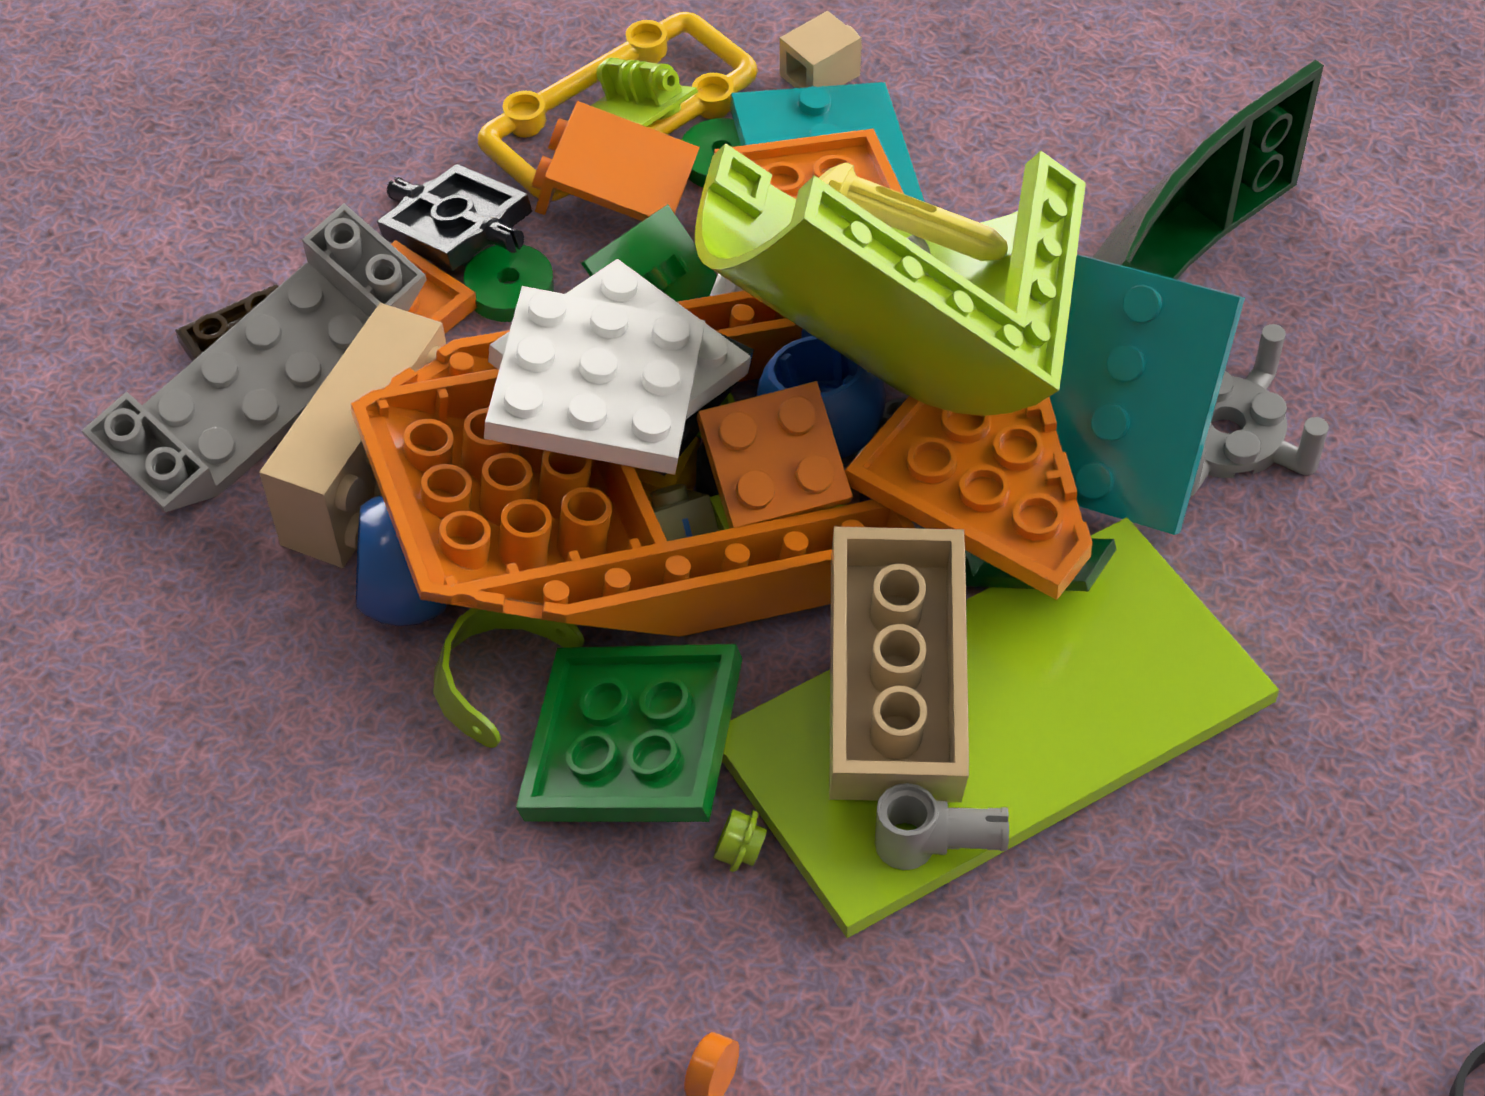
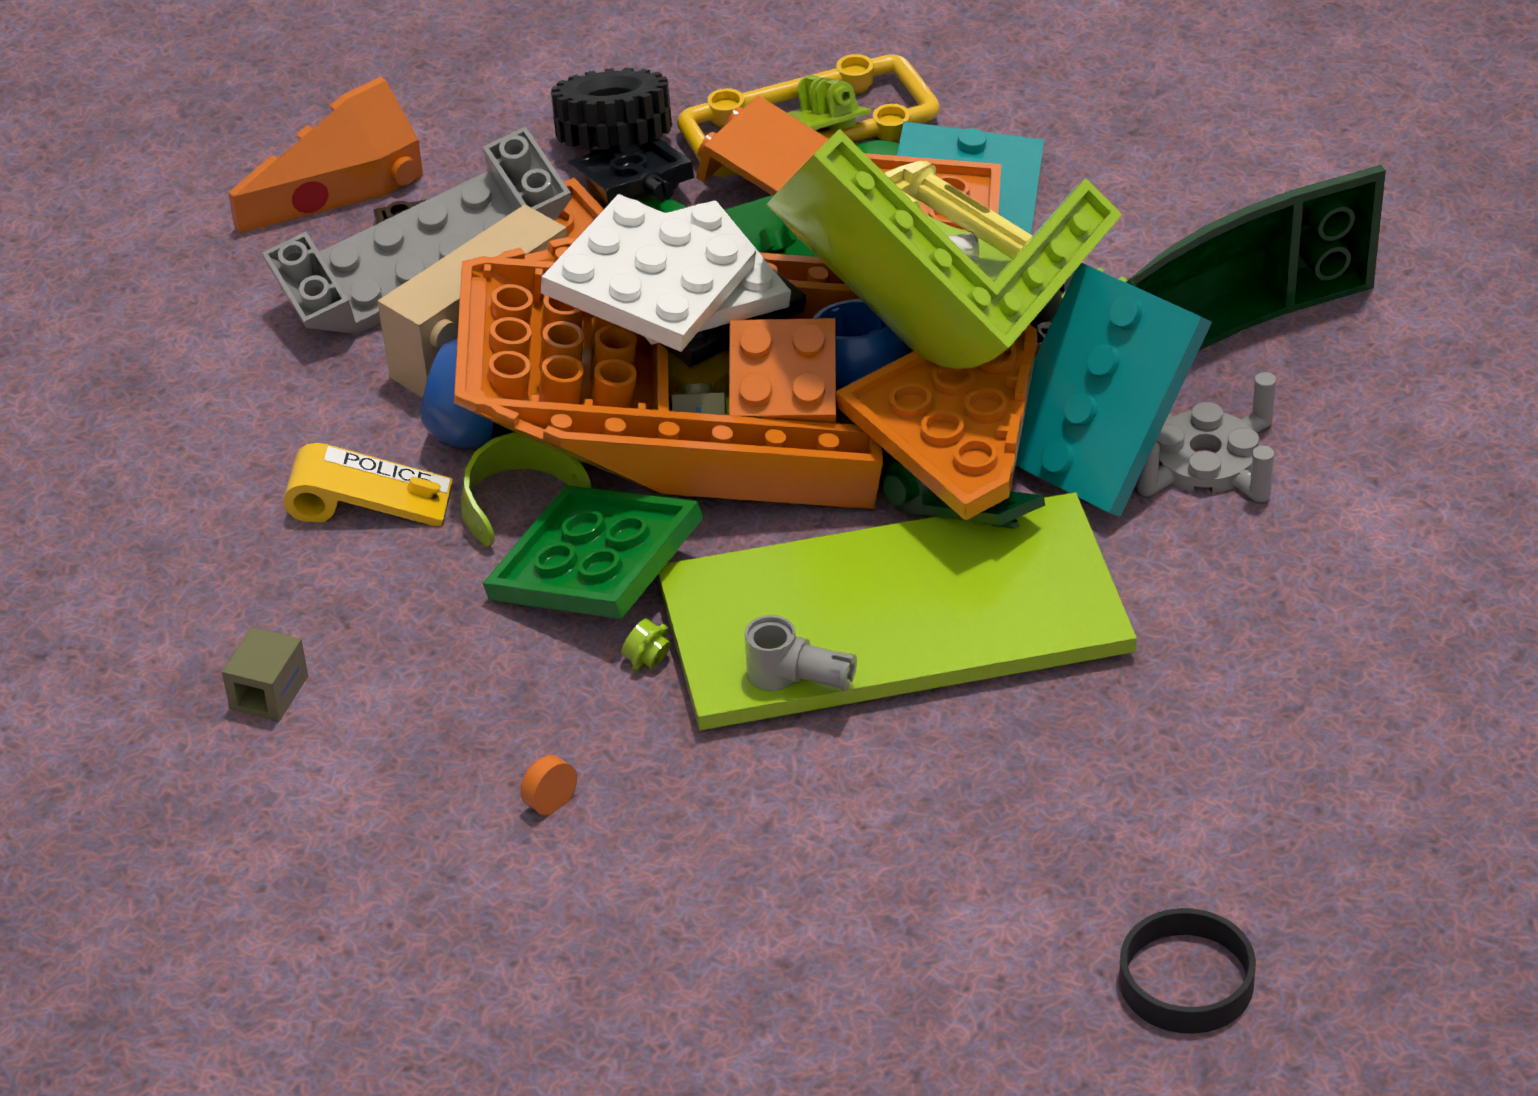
camera: 20 degrees right, 10 degrees down
(126, 274) = (345, 159): none -> orange wedge
(277, 706) = (334, 474): none -> yellow door
(306, 1005) = (265, 674): none -> olive brick
(405, 145) = (611, 108): none -> black tyre
(820, 53) = (998, 105): tan brick -> none
(898, 662) = (811, 530): tan brick -> none

